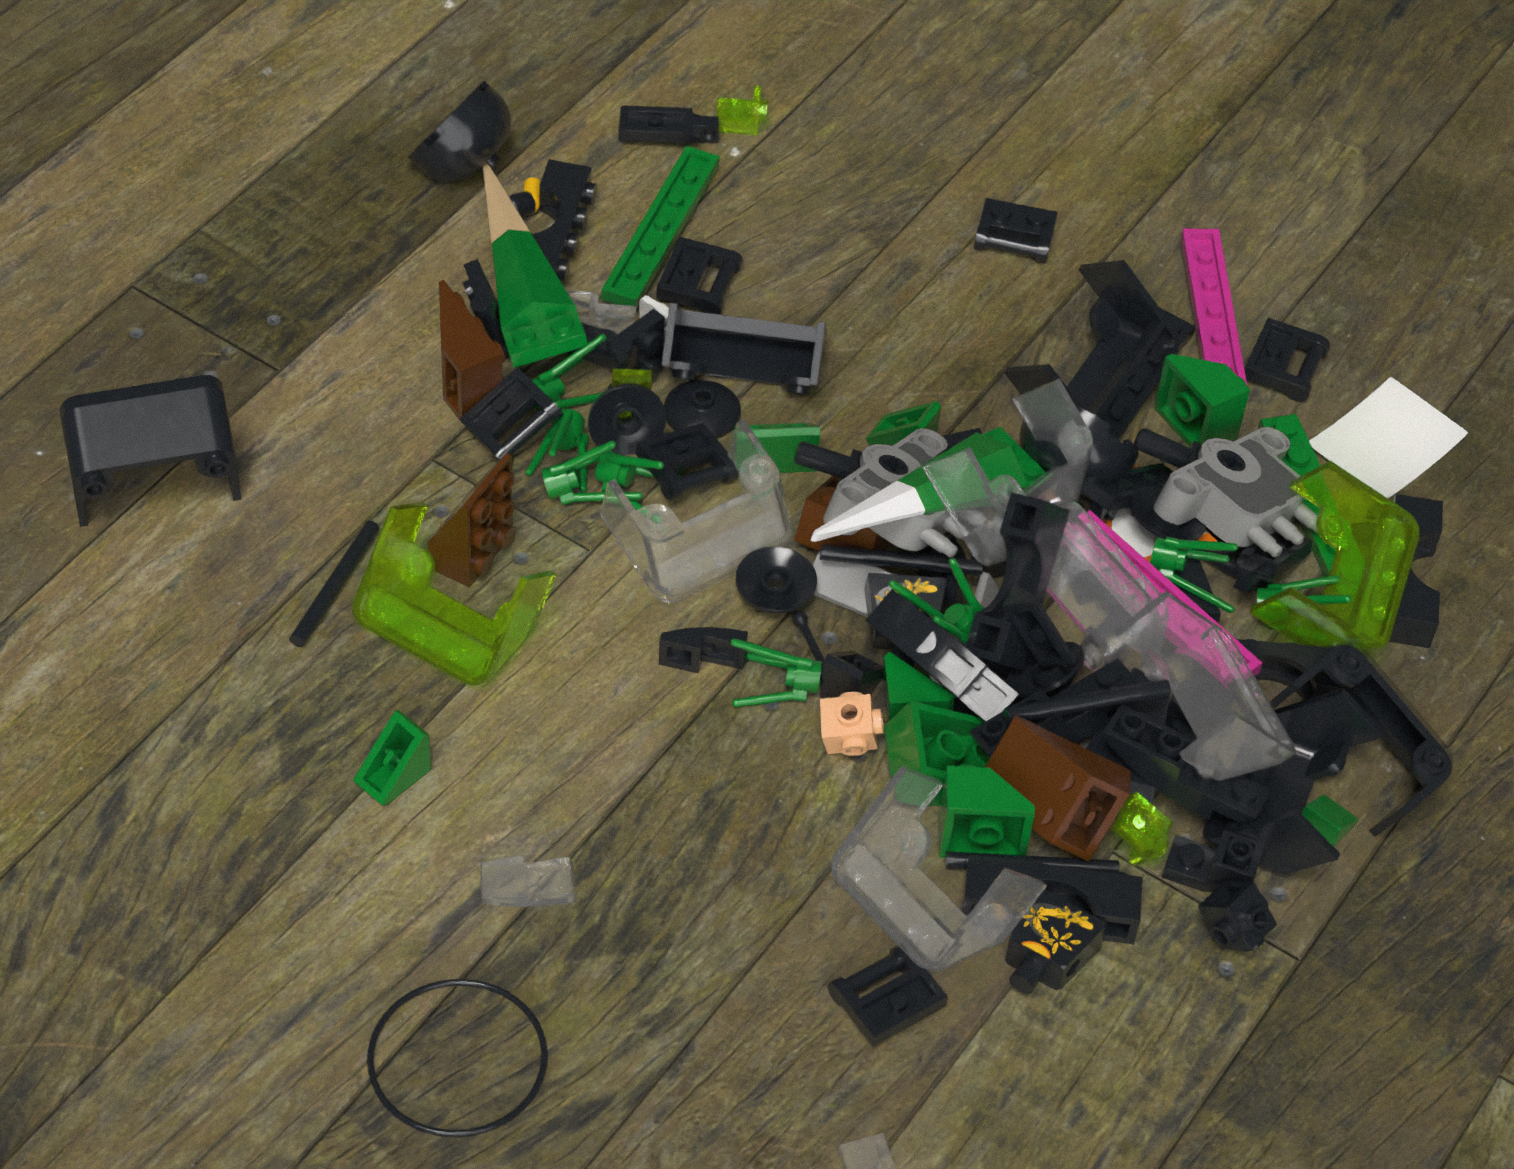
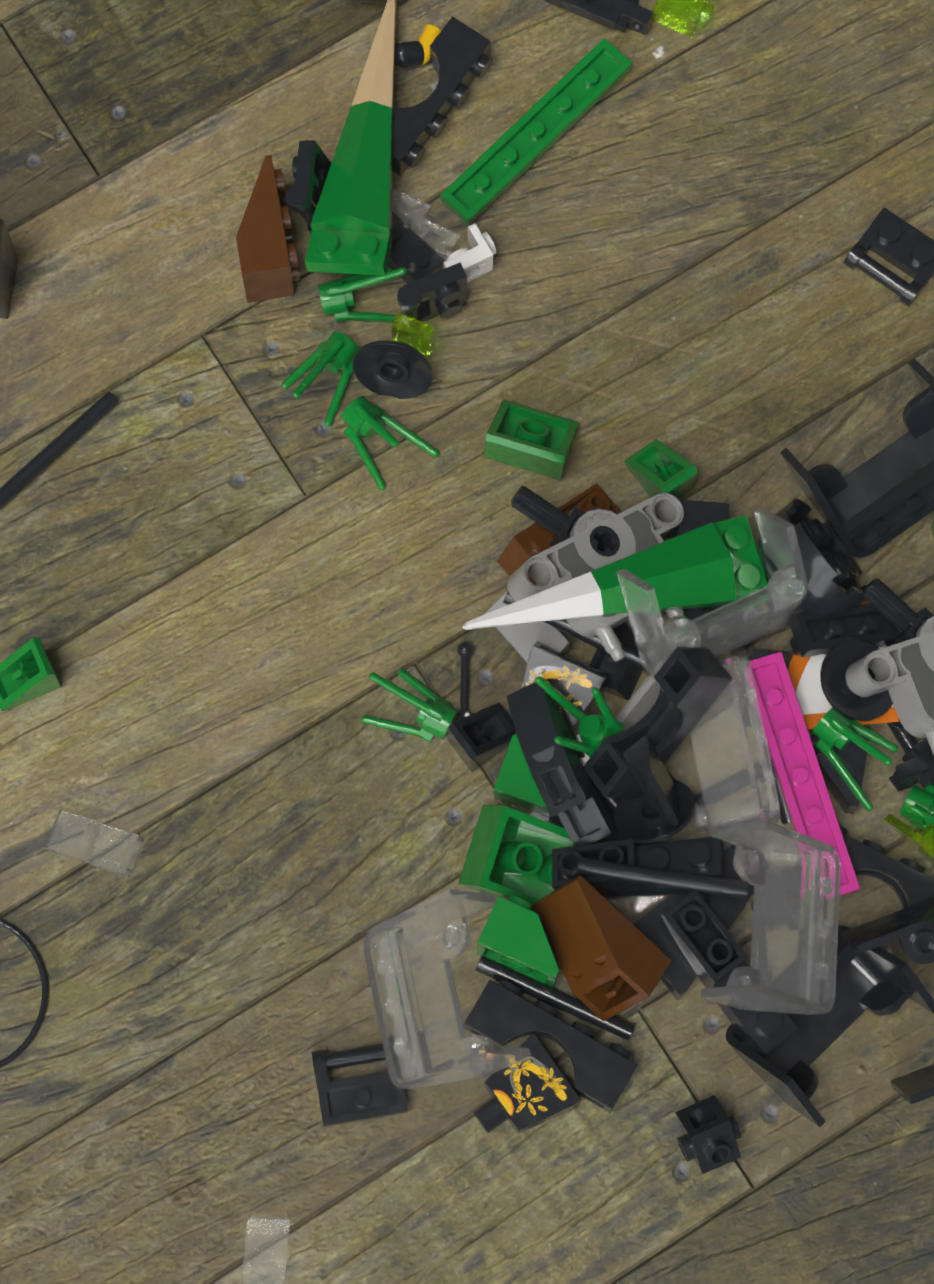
camera: 25 degrees right, 25 degrees up
(408, 612) = (122, 526): clear neon green windscreen -> none
(477, 527) = (196, 448): reddish brown slope -> none
(504, 408) = (284, 310): black plate -> none
(563, 478) = (311, 410): green plant -> none
(686, 450) = (431, 420): black plate -> none
(688, 269) = (536, 200): black plate -> none
(690, 646) = (345, 651): black slope -> none
(703, 402) = (477, 385): black dish -> none
(707, 548) = (421, 545): clear windscreen -> none
(743, 349) = (548, 311): black windscreen -> none
(776, 568) = (450, 584): black dish -> none
(850, 724) = (451, 793): light nougat brick -> none
(1143, 828) = (665, 1012): clear neon green bracket -> none
(1208, 867) = (717, 1067): black slope -> none
(1329, 818) = (856, 1057): green slope -> none

